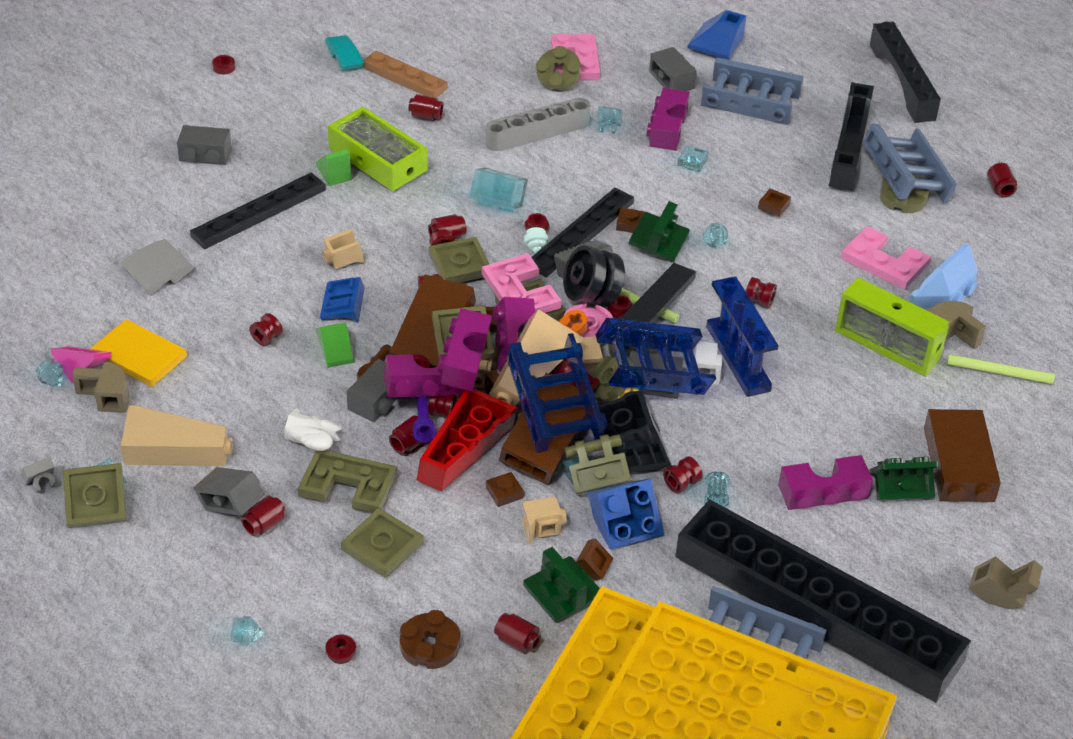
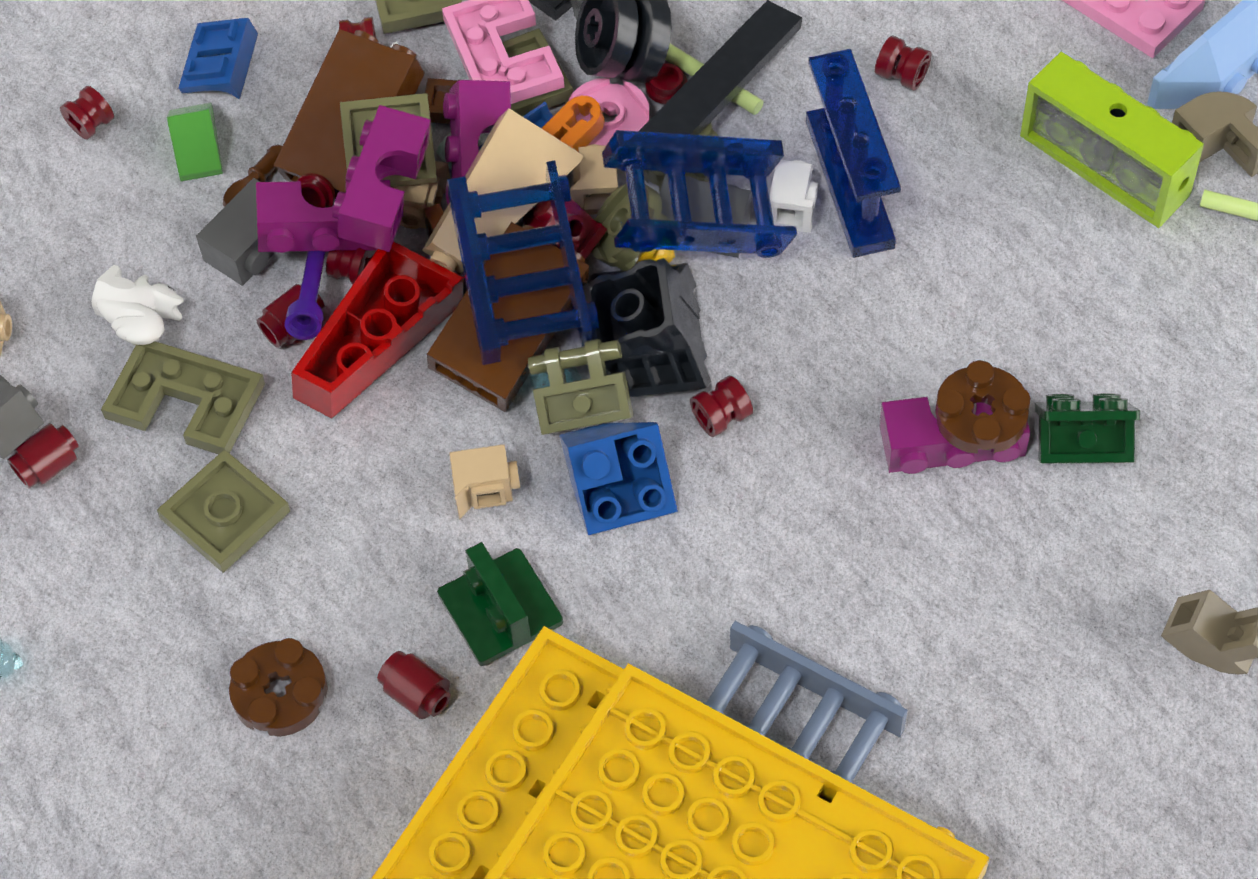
camera: 10 degrees right, 15 degrees up
(340, 655) = (142, 707): dark red plate -> none
(504, 489) = (432, 418): reddish brown plate -> none
(594, 559) = (555, 557): reddish brown plate -> none
(717, 485) = (773, 436): clear light blue bush -> none
(808, 588) = (915, 648): black brick -> none
(846, 454) = (987, 385): none -> reddish brown plate
(964, 455) = (1191, 387): reddish brown brick -> none

